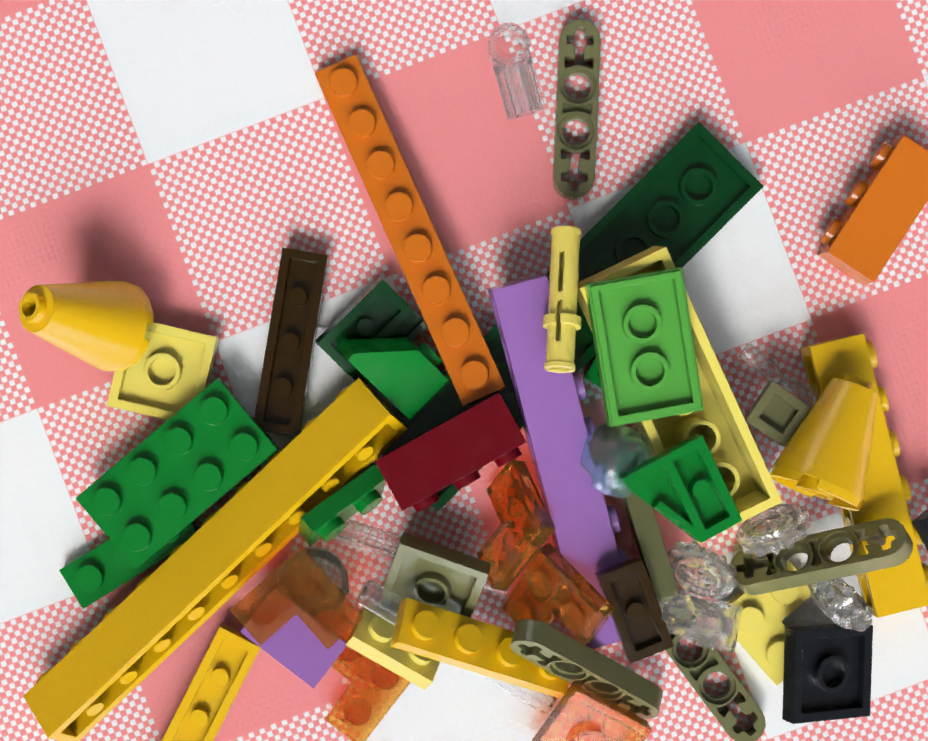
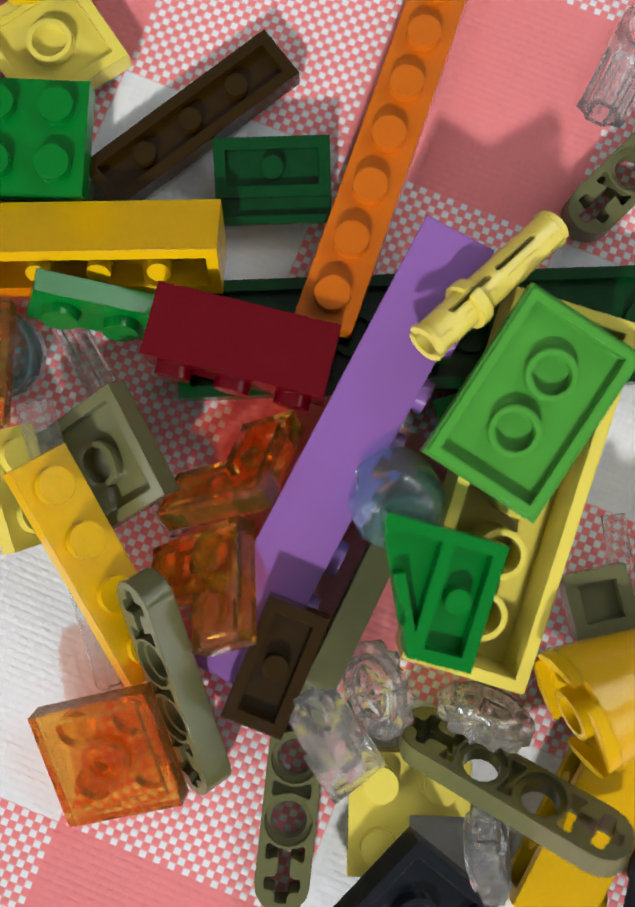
camera: 40 degrees right, 5 degrees down
(397, 370) = (263, 228): green slope -> none

